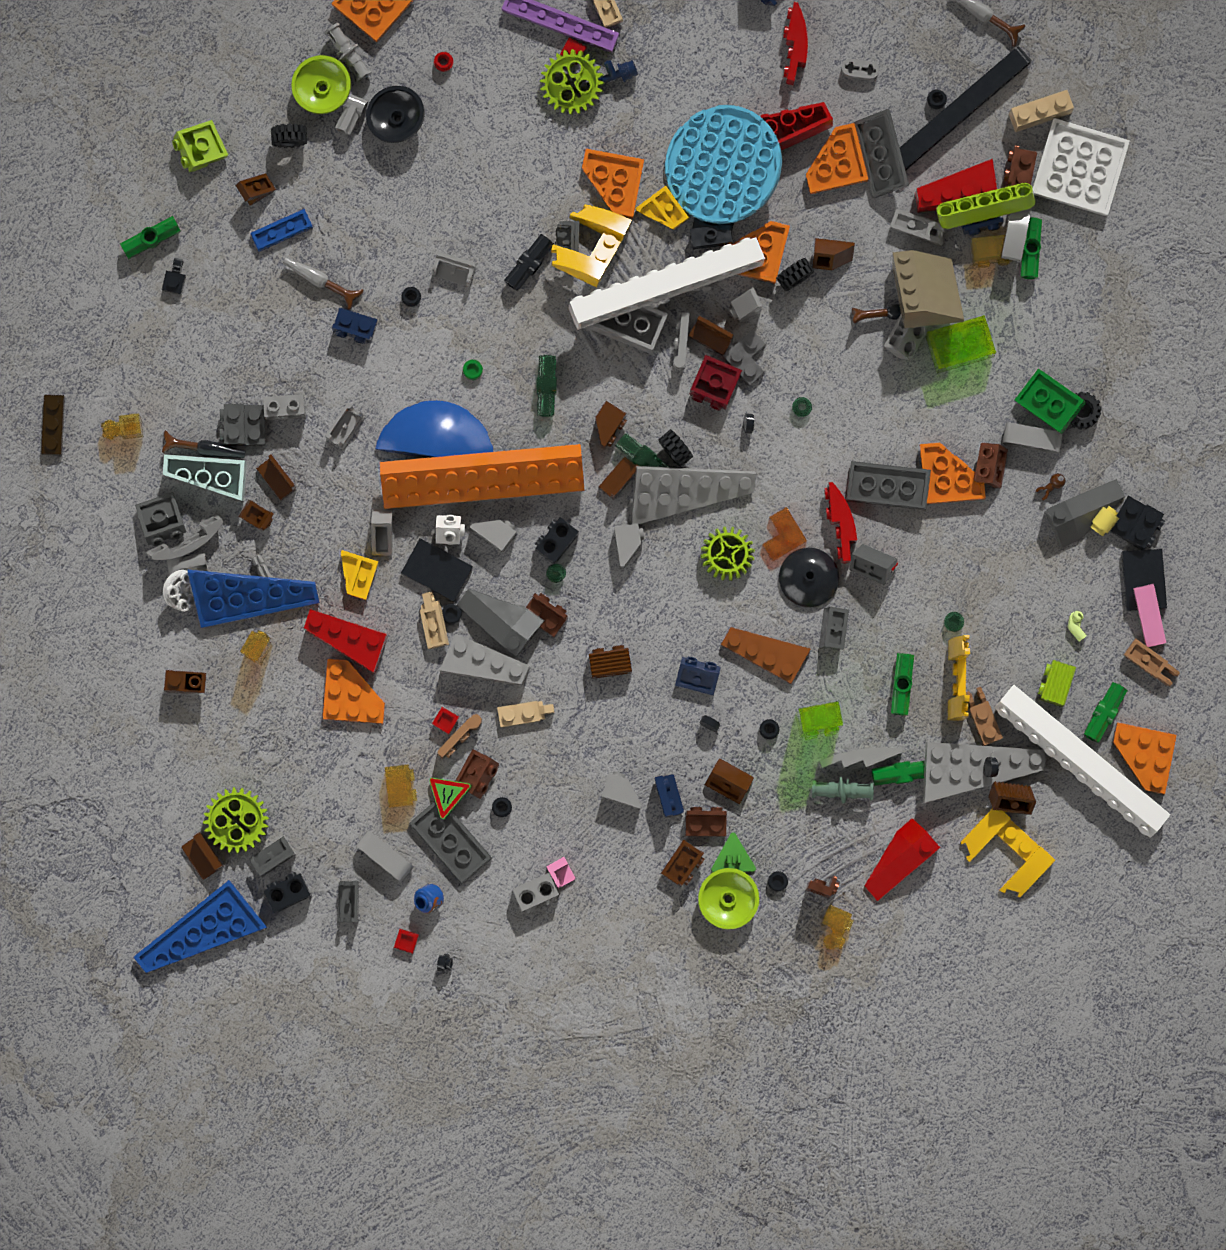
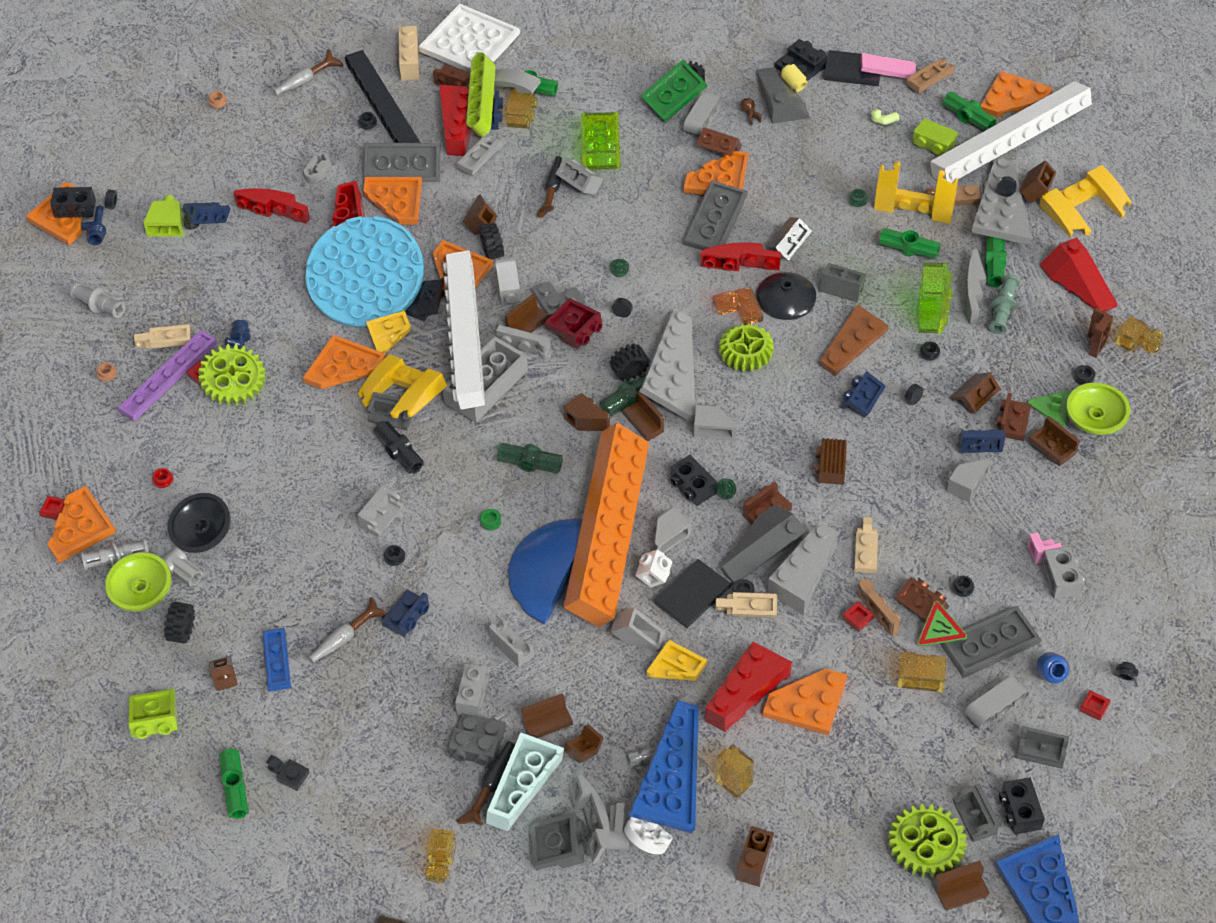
camera: 70 degrees left, 30 degrees down
(926, 289) = (541, 152): dark tan slope -> none

